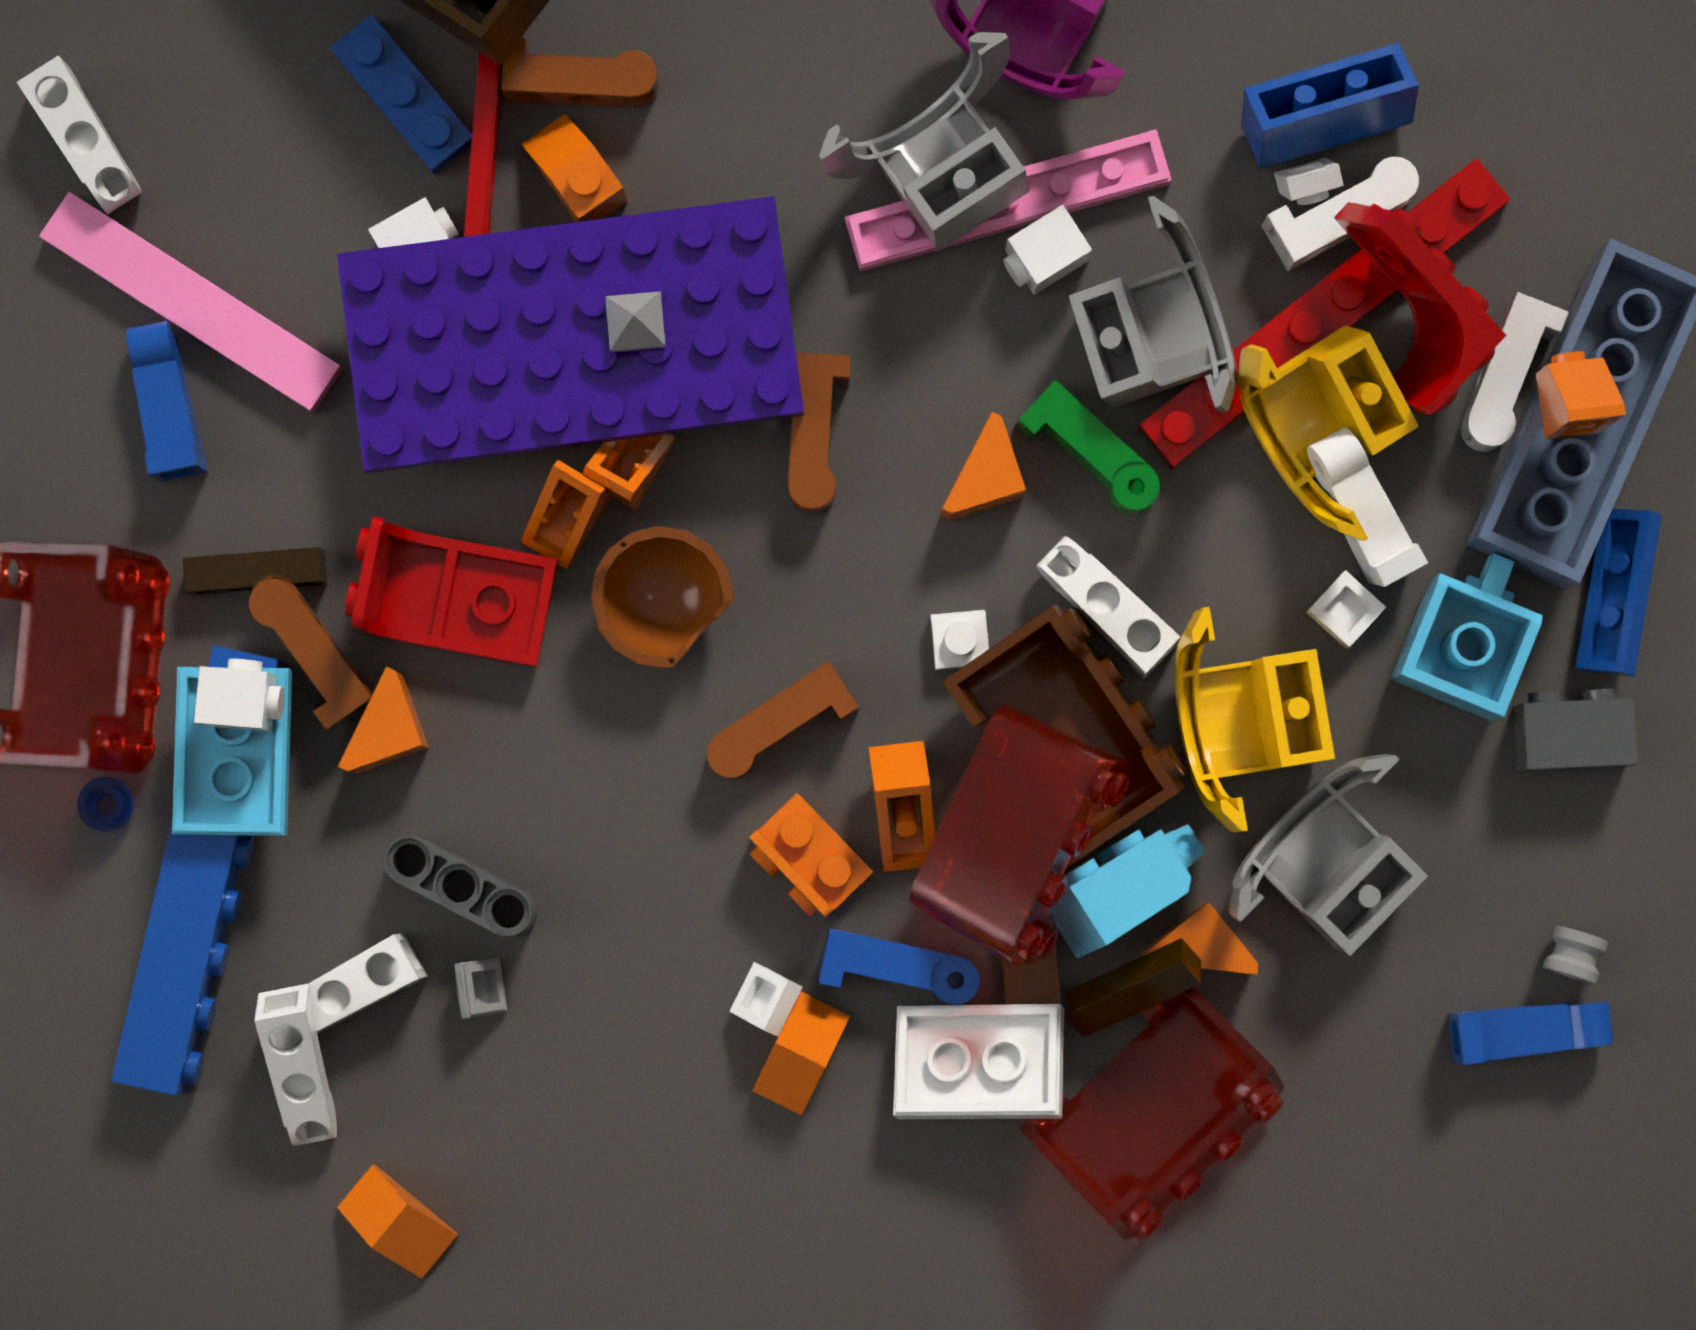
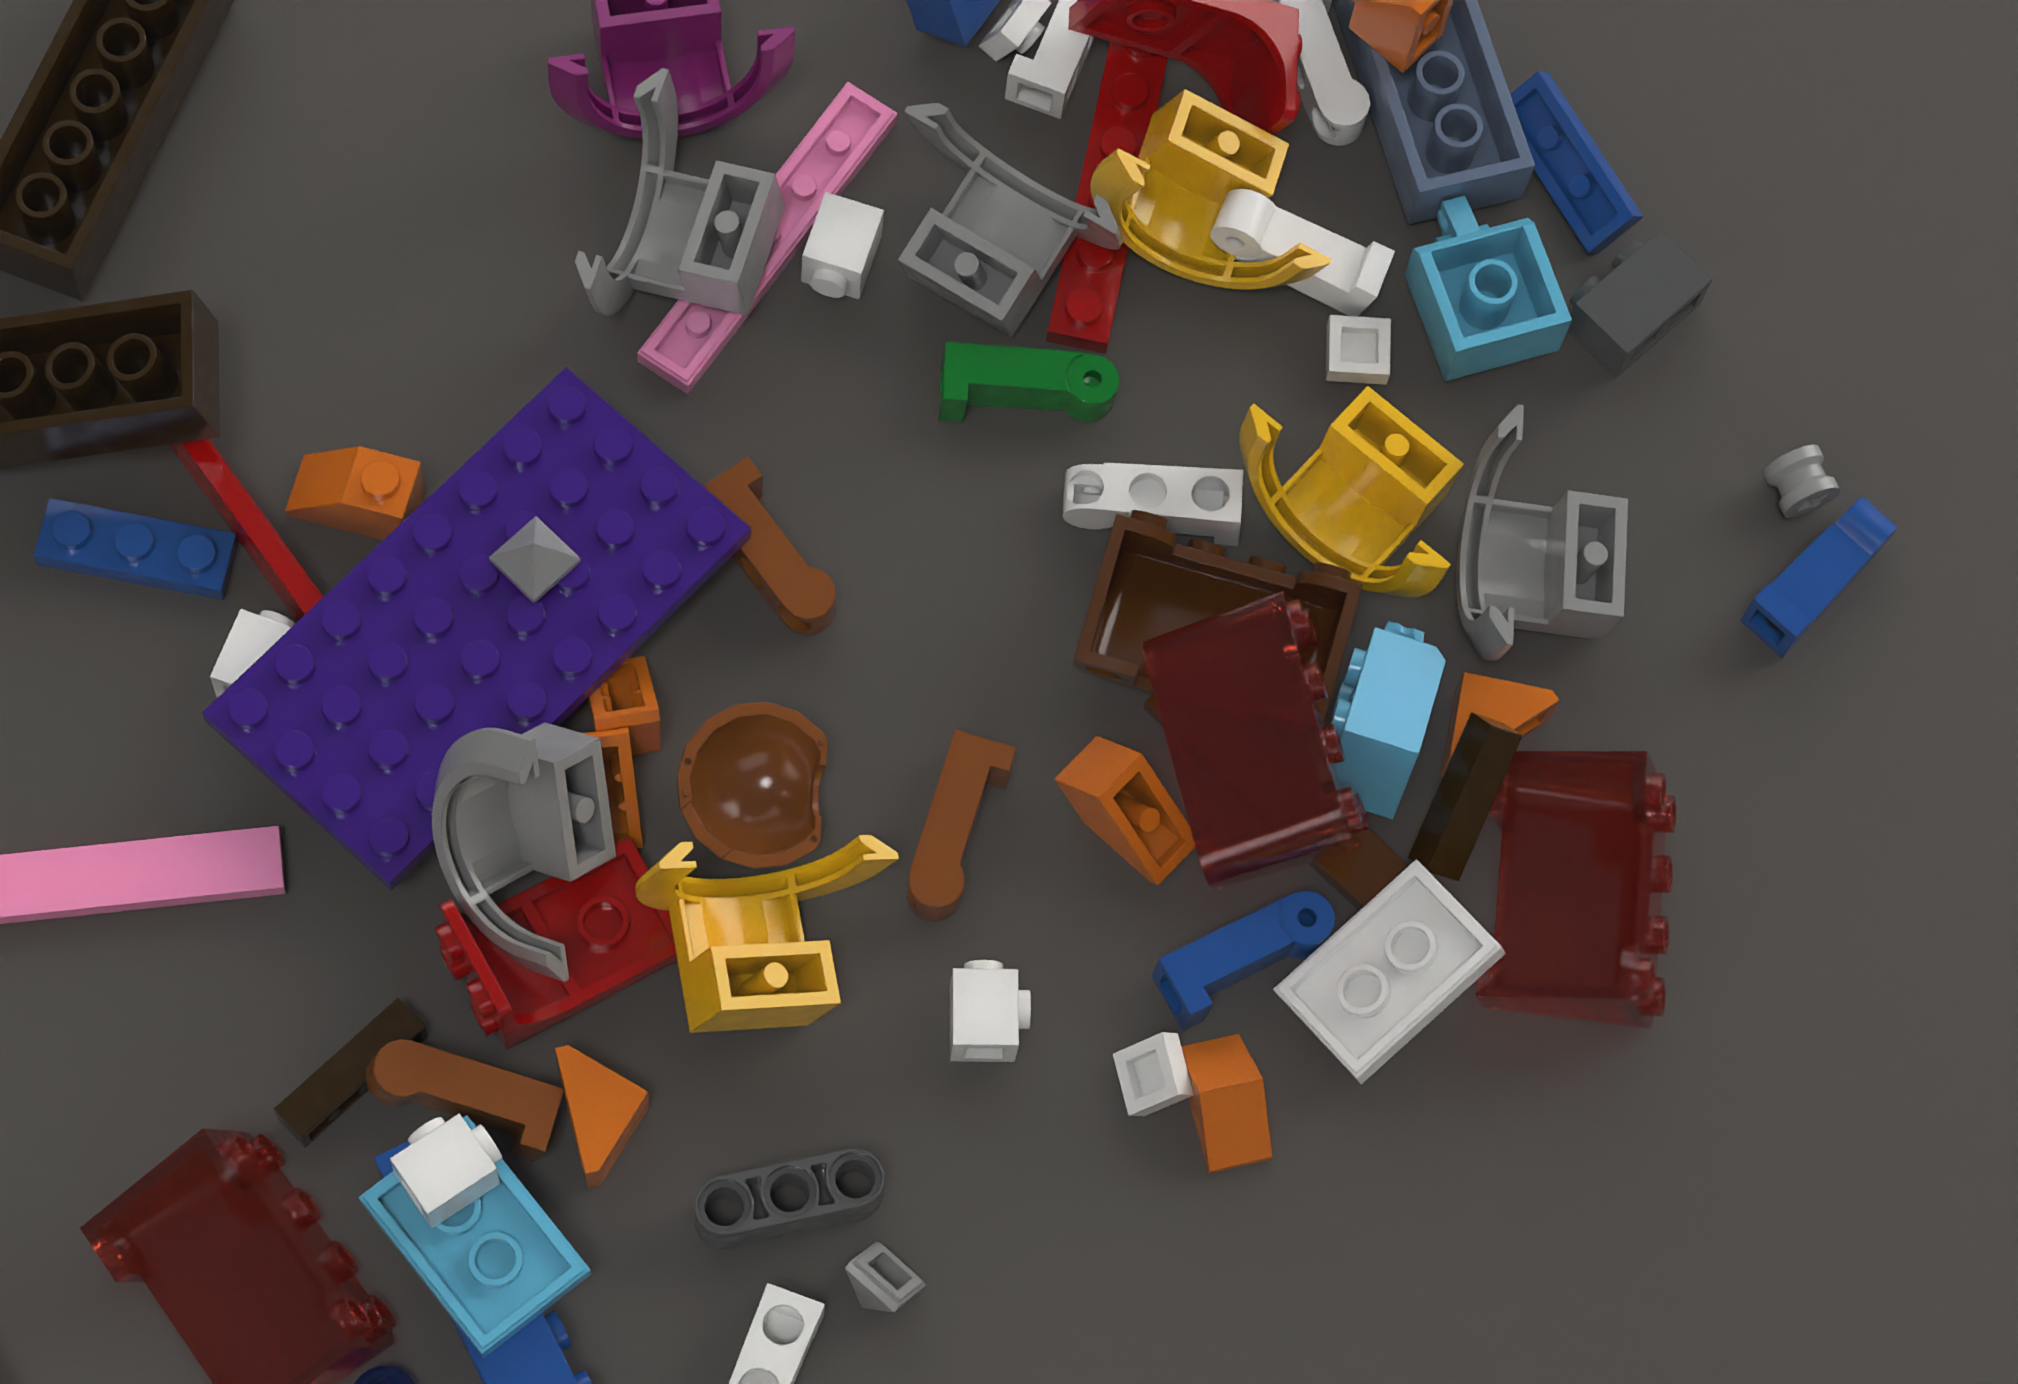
camera: 50 degrees left, 15 degrees down
(164, 403) = (138, 987): blue leg -> none
(481, 486) = (516, 808): none -> light grey piece
(571, 694) = (745, 940): none -> yellow piece
(578, 80) = (296, 411): dark orange leg -> none
(692, 867) = (986, 1012): none -> white brick
(809, 856) = (1082, 923): orange bracket -> none
(958, 638) = (1047, 633): white plate -> none
(988, 475) = (954, 469): orange slope -> none

